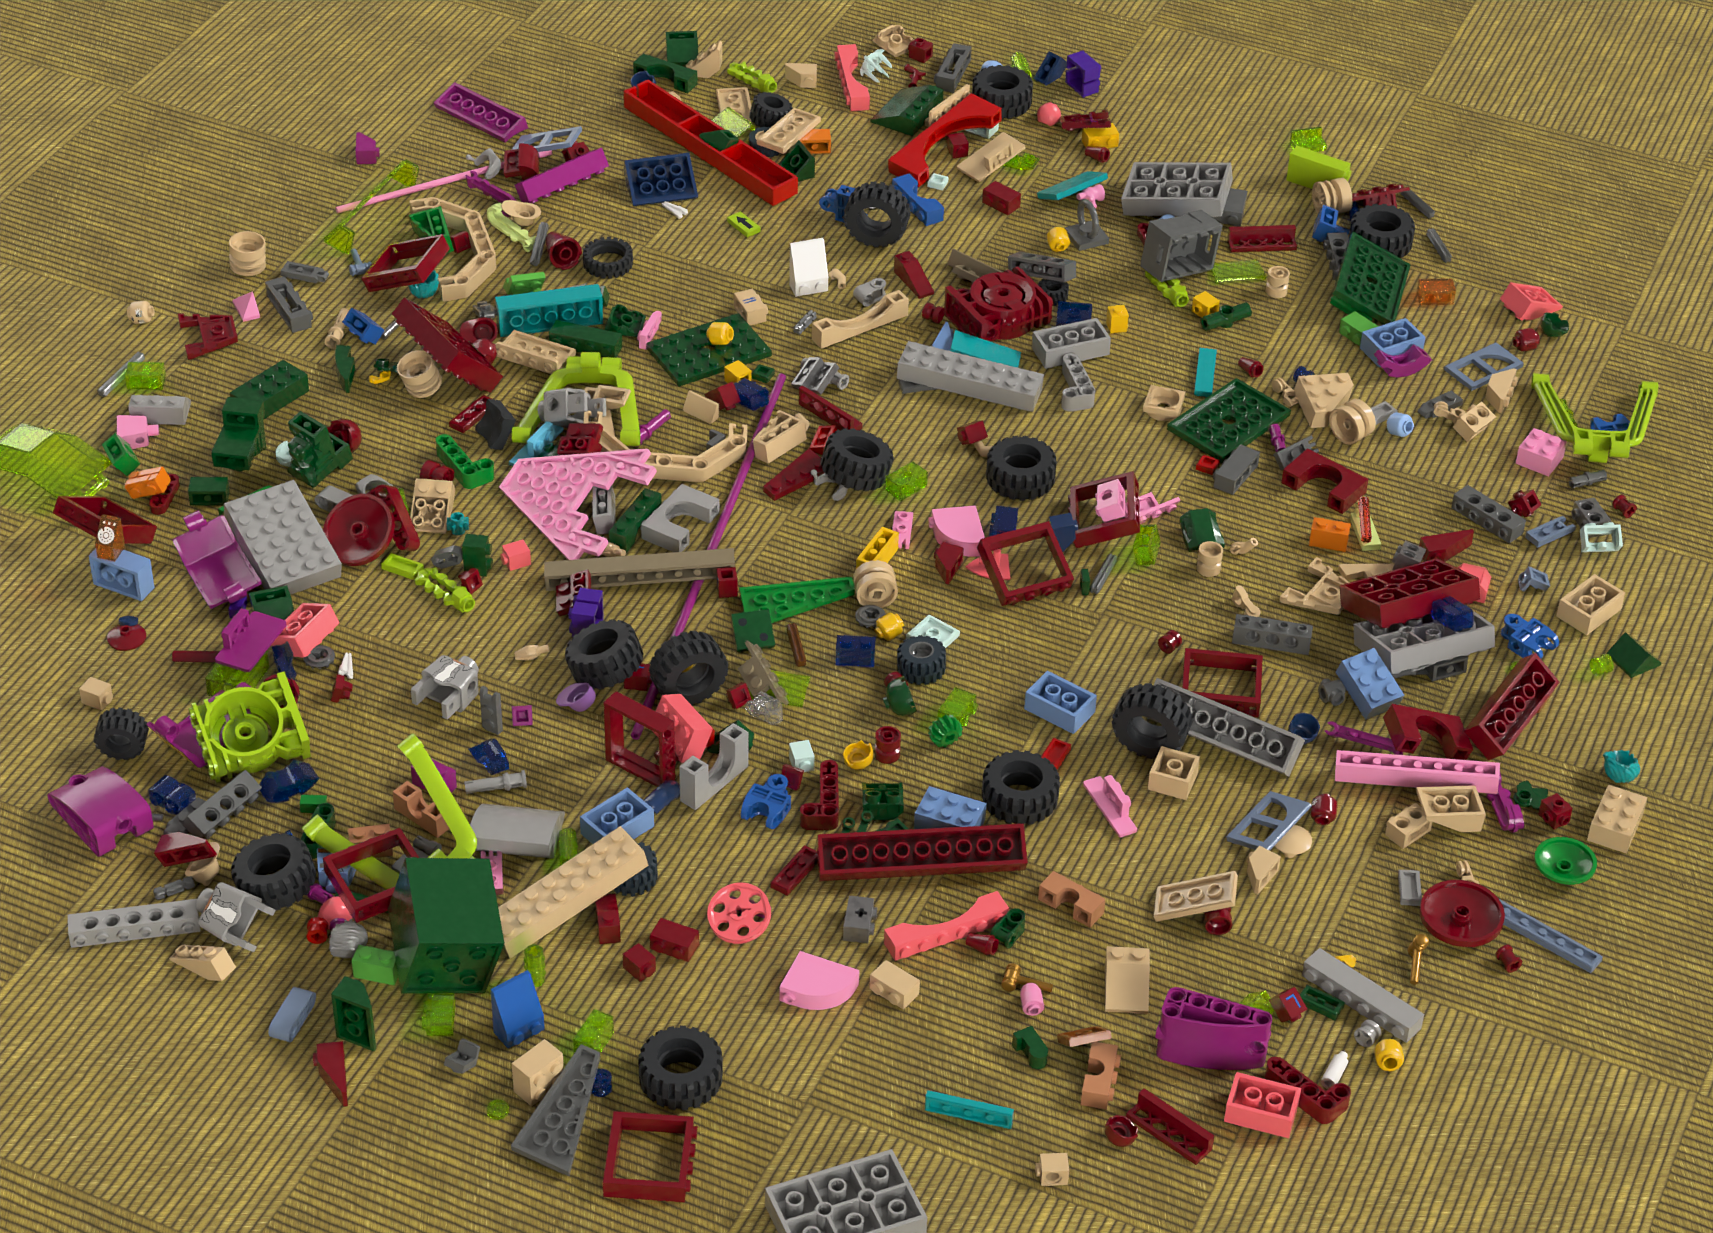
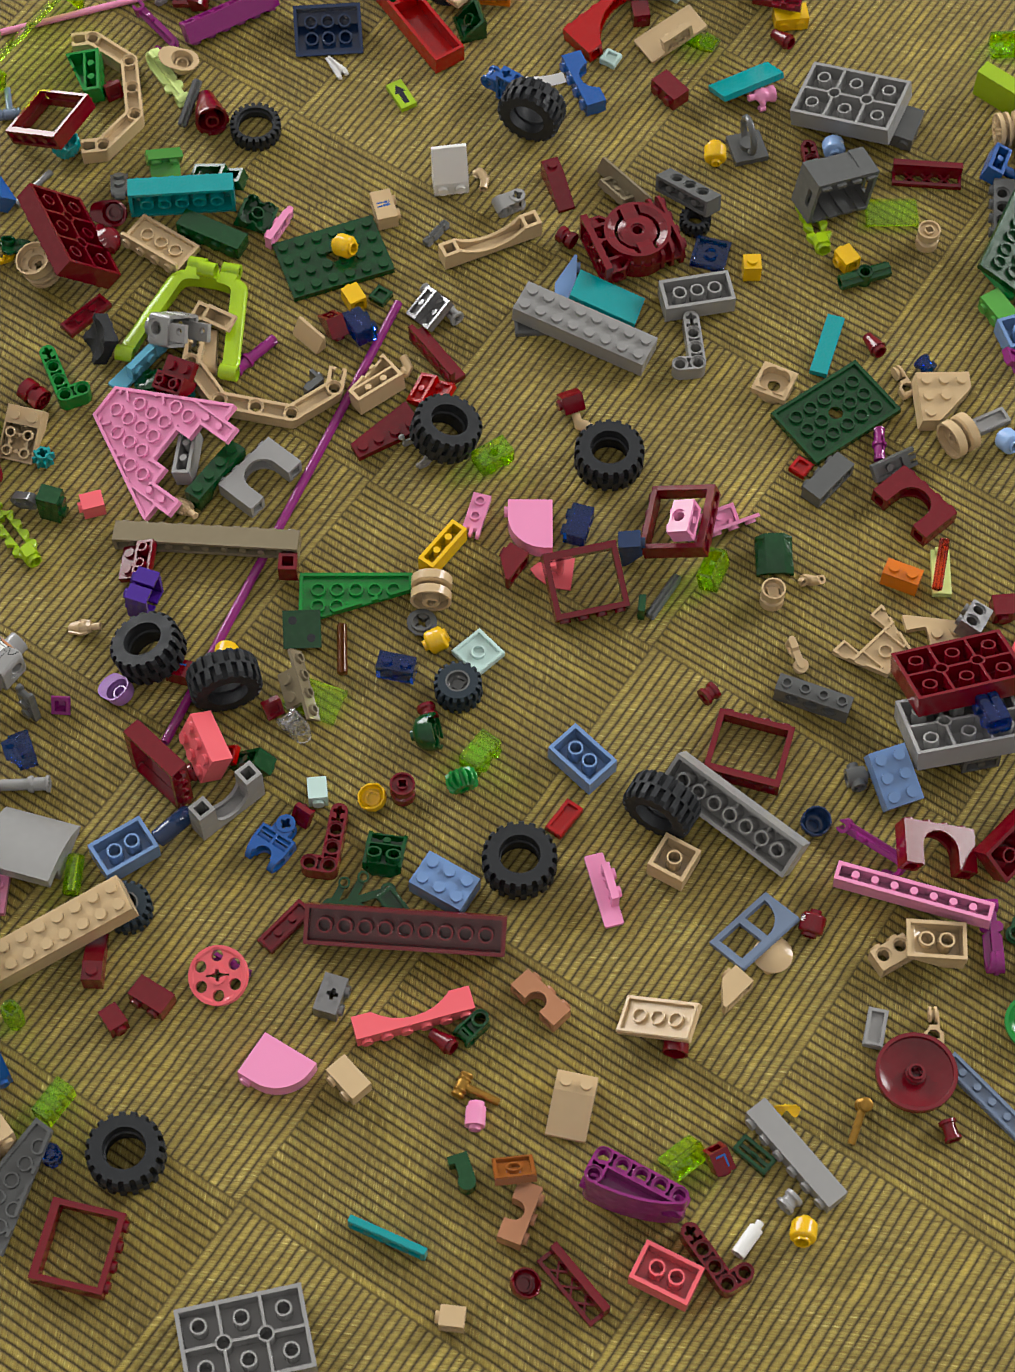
camera: 10 degrees right, 20 degrees up
(471, 580) = (42, 531): dark red tile -> none

